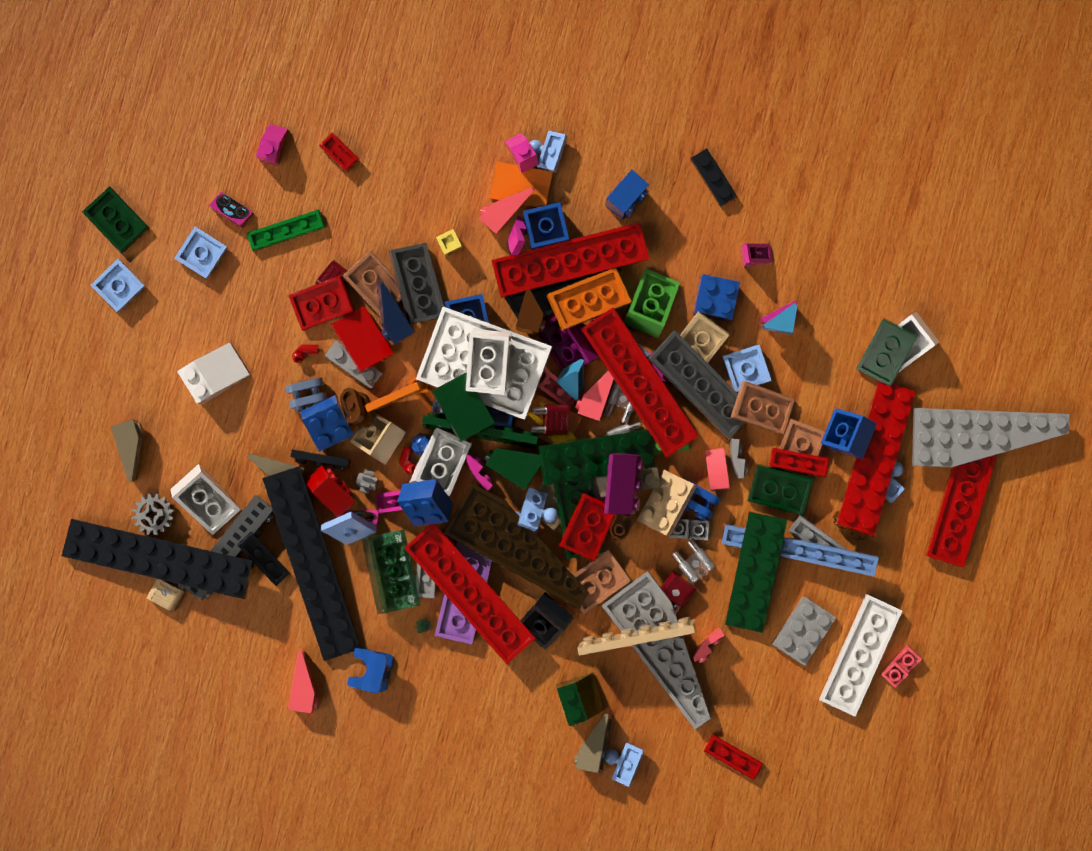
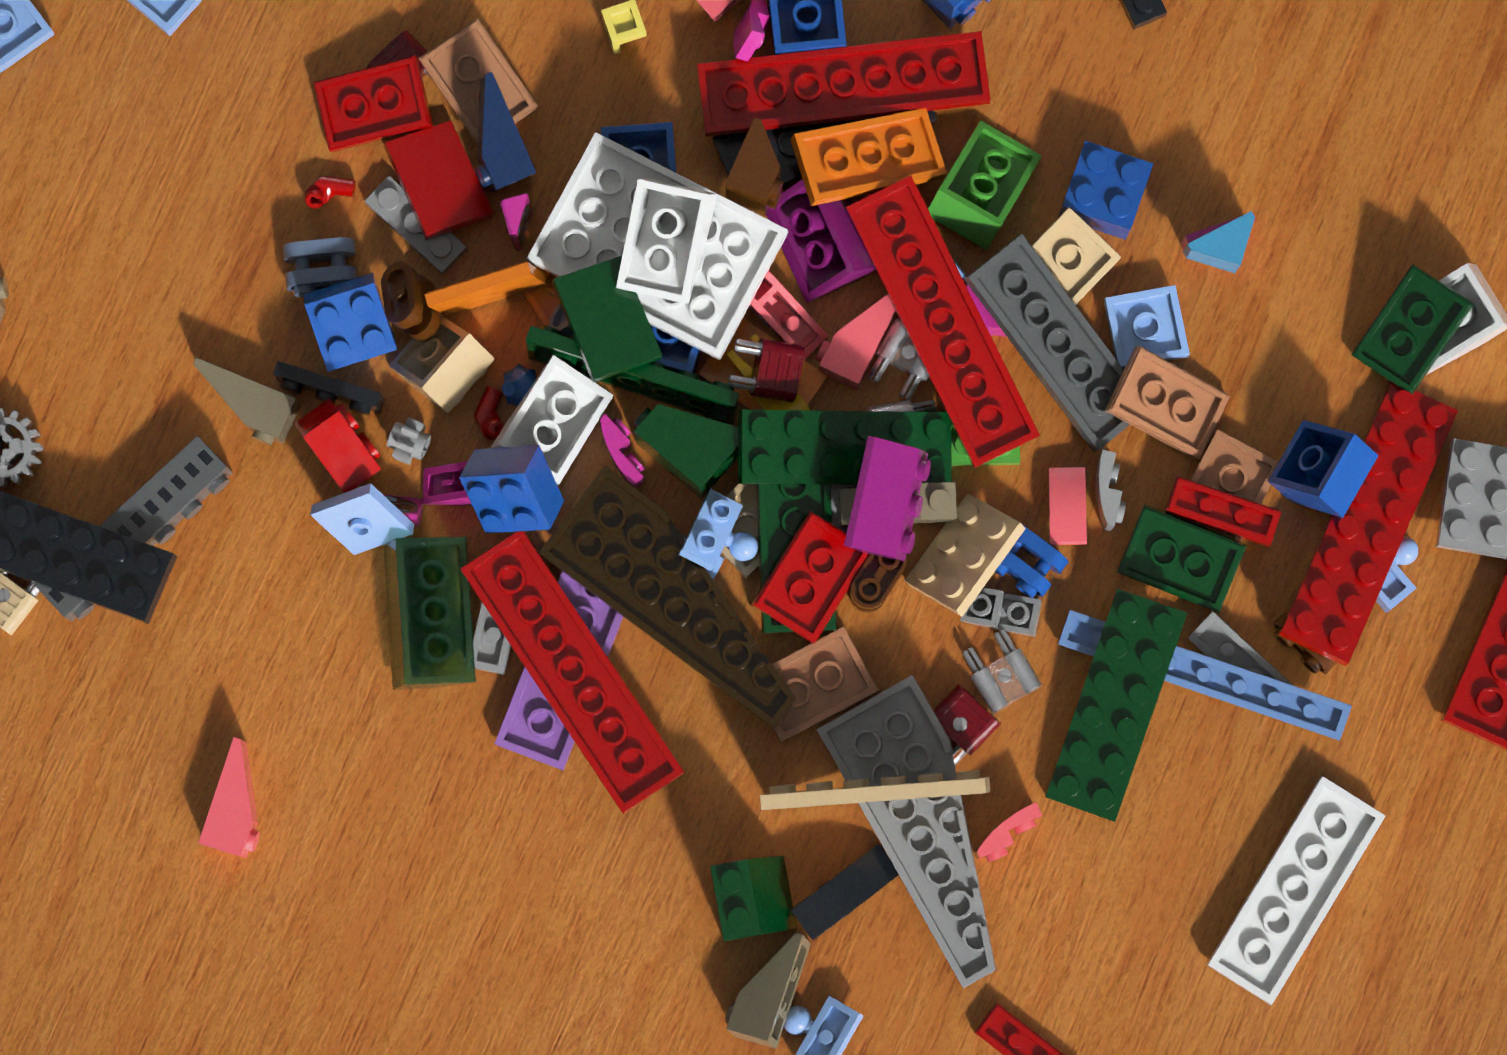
camera: 10 degrees right, 5 degrees down
(204, 499) = (103, 434): white slope -> none
(213, 373) = (154, 207): white slope -> none
(263, 558) = (194, 555): black plate -> none
(311, 563) = (283, 577): black plate -> none
(377, 672) = (377, 796): blue piece -> none
(407, 356) = (517, 214): none -> dark pink slope
(417, 283) = (554, 90): dark grey plate -> none
(423, 626) = (475, 724): clear green plate -> none
(546, 620) = (709, 744): black slope -> none
(572, 379) = (819, 301): dark azure slope -> none
(626, 688) = (844, 892): none -> black slope
(756, 254) = (1189, 121): dark pink slope -> none
(804, 630) = (1193, 830): light grey plate -> none
(901, 666) = (1371, 922): coral slope -> none

